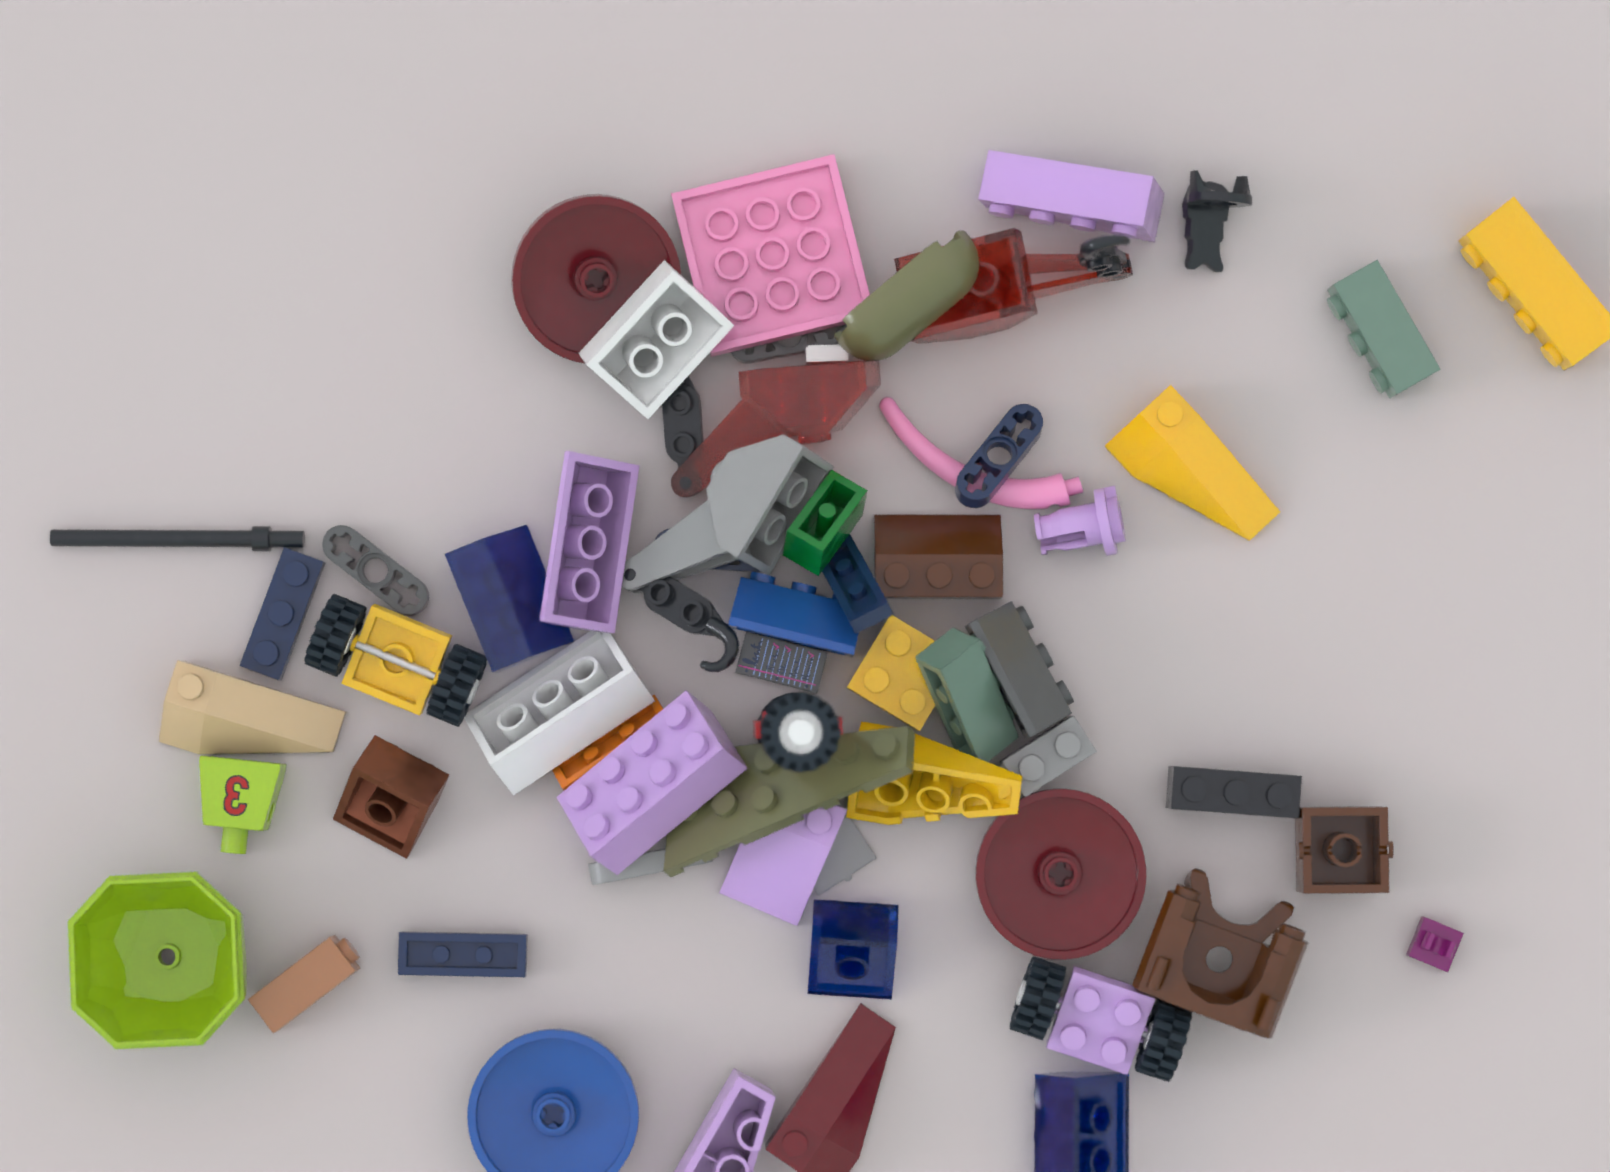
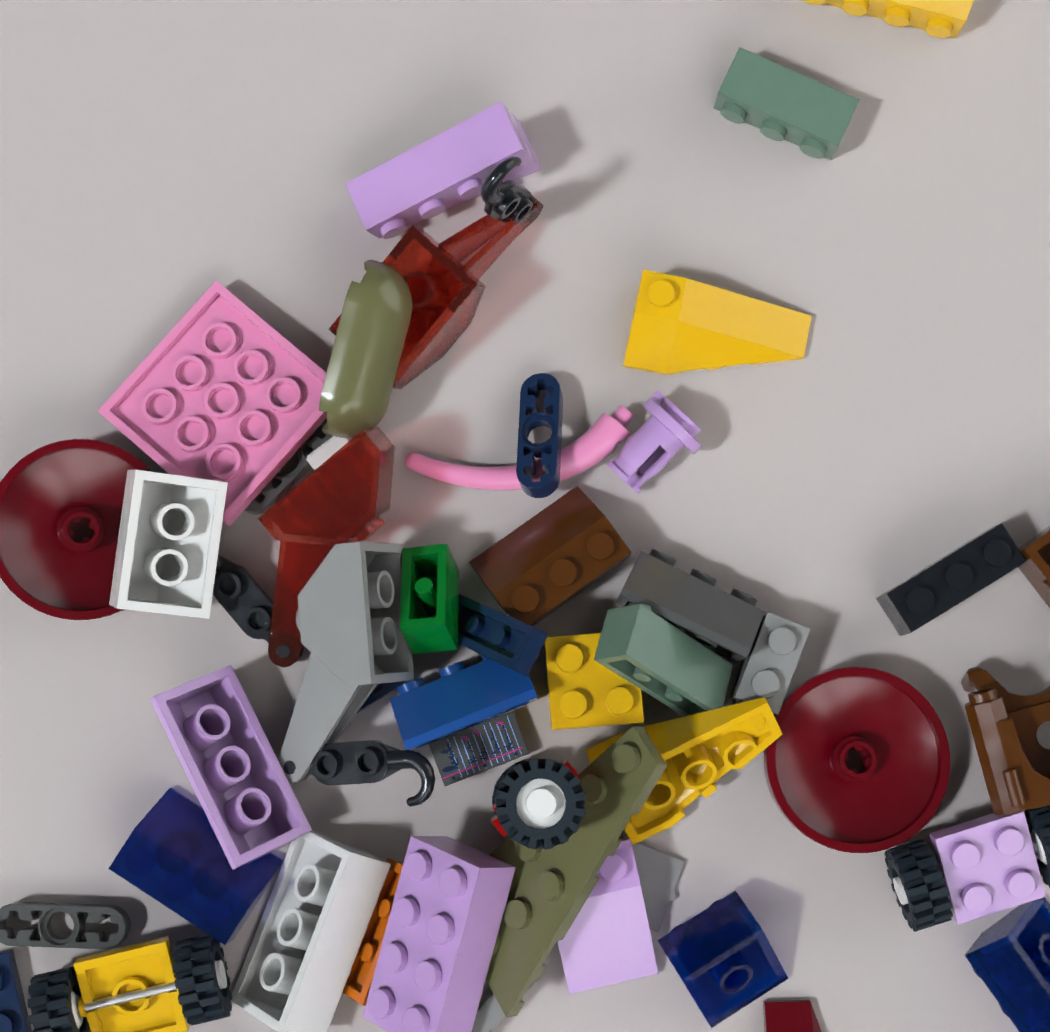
camera: 30 degrees left, 5 degrees down
(1205, 210) = (566, 111): black hair -> none

